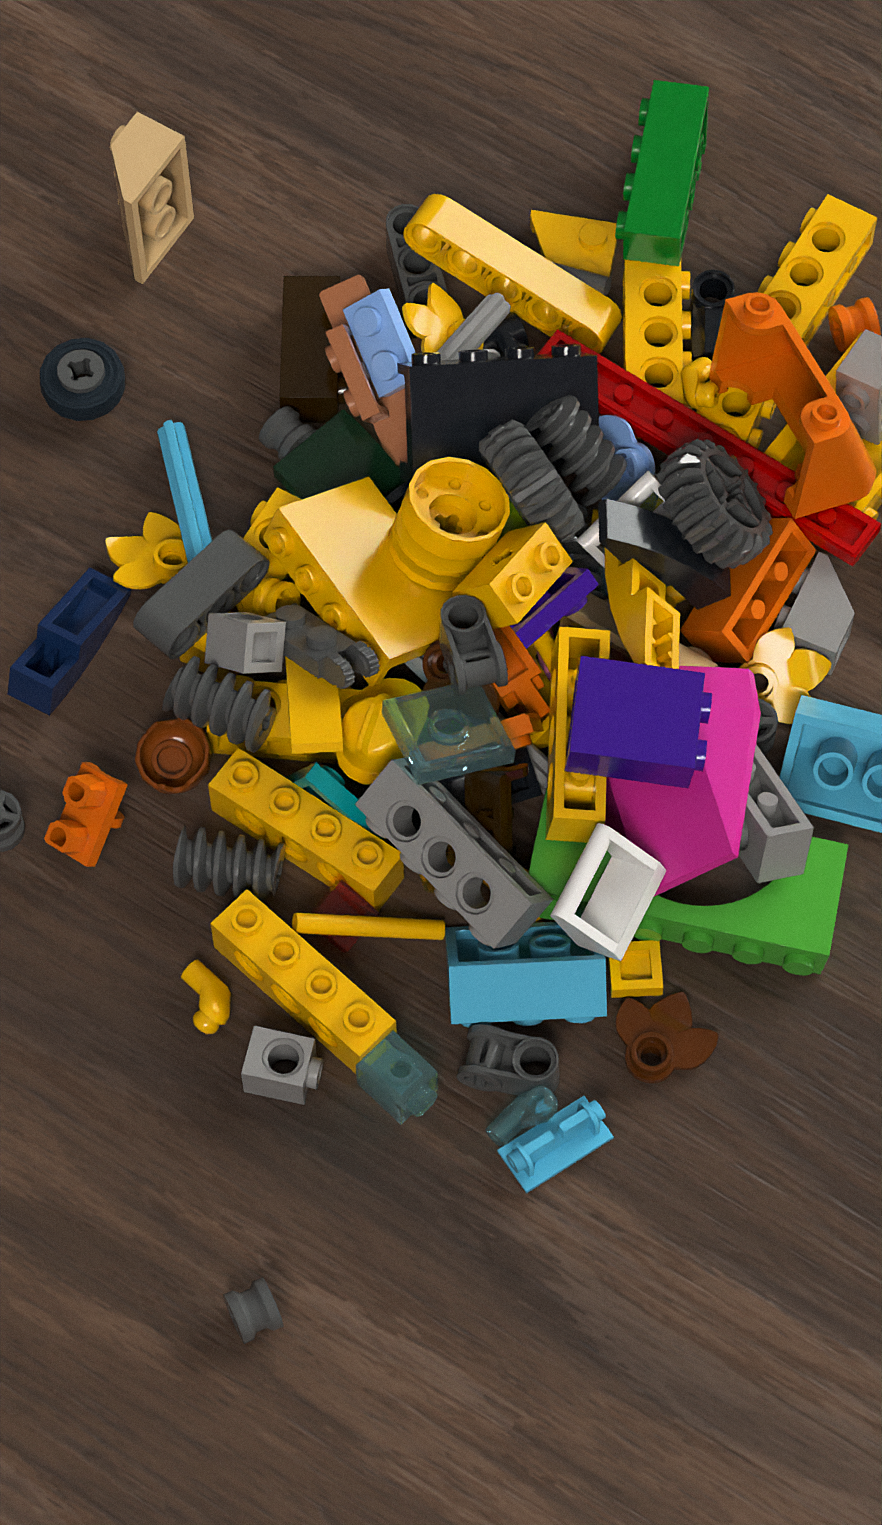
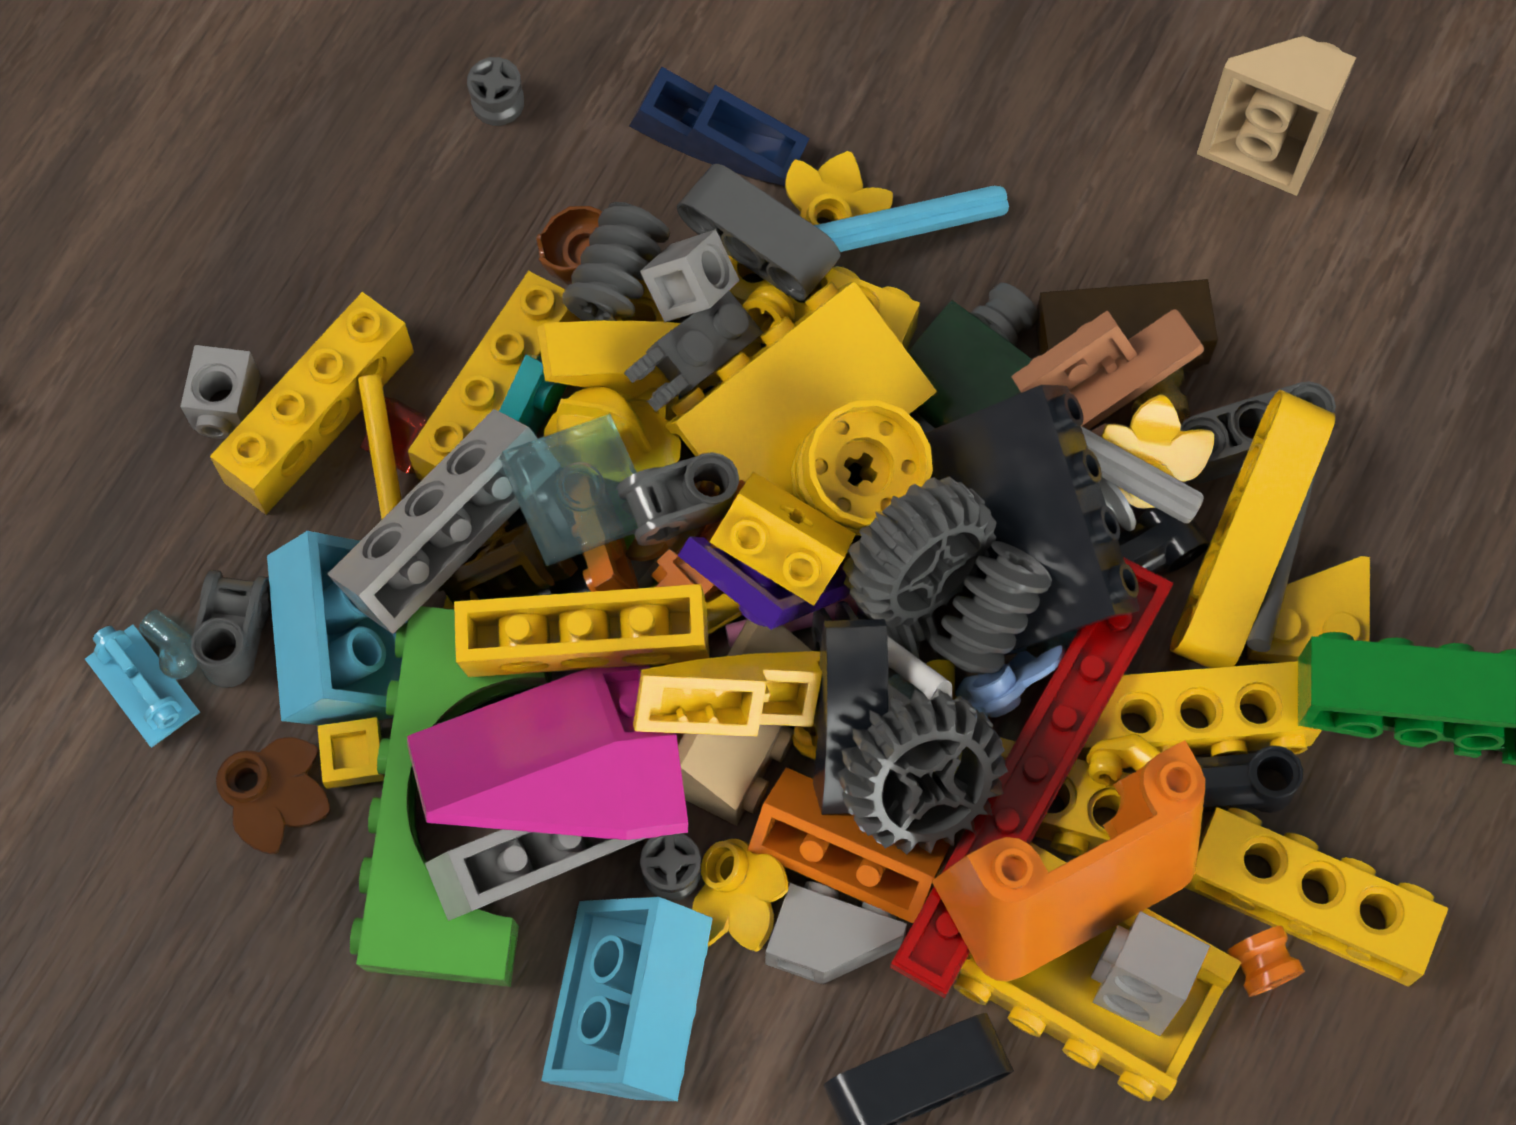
camera: 85 degrees right, 5 degrees up
(88, 395) = (1064, 115): black wheel -> none
(88, 814) = (496, 165): orange hips -> none
(213, 998) = (304, 322): yellow arm -> none
(227, 865) = (449, 309): dark grey piece -> none
(380, 339) = (1121, 380): light blue plate -> none
(398, 1078) = (207, 511): clear light blue brick -> none
(618, 898) = (380, 699): white tile -> none
(637, 722) = (567, 676): dark purple brick -> none

